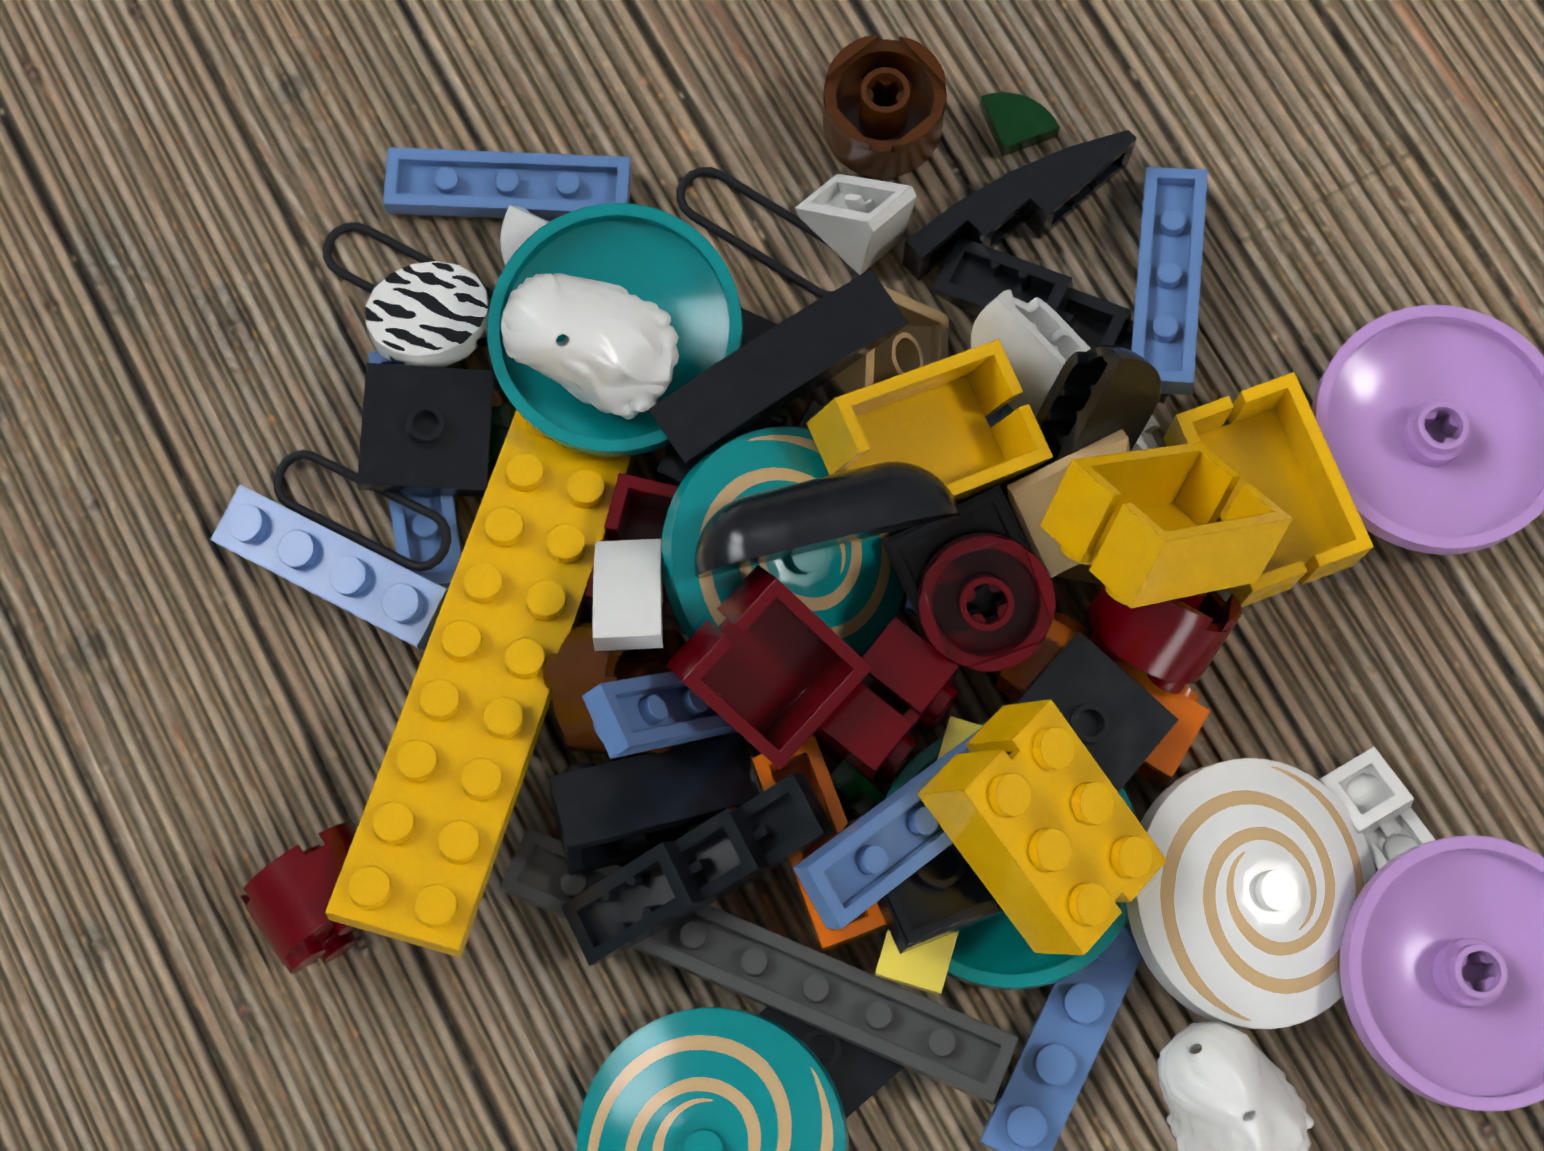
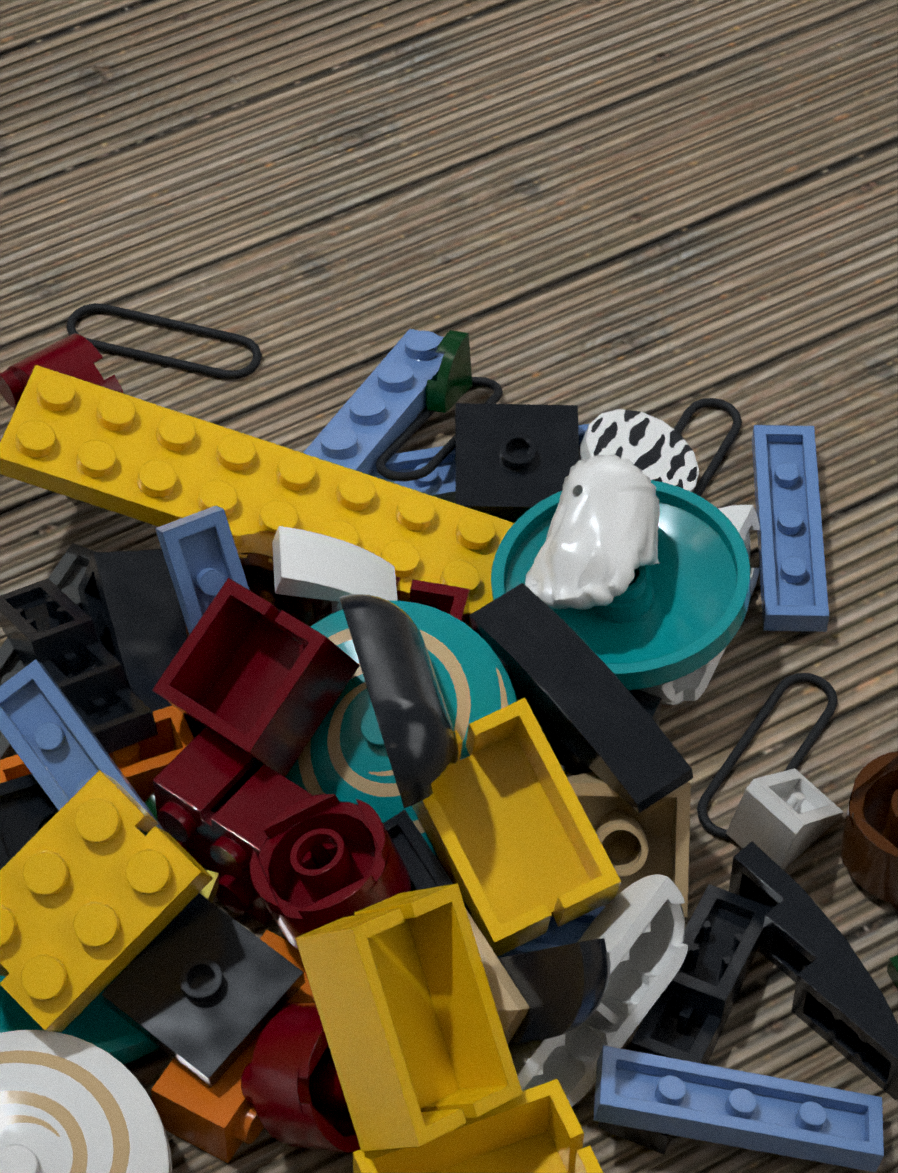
camera: 85 degrees right, 25 degrees down
(166, 799) = (166, 322): none -> black piece
(293, 495) = (454, 373): none -> dark green tile

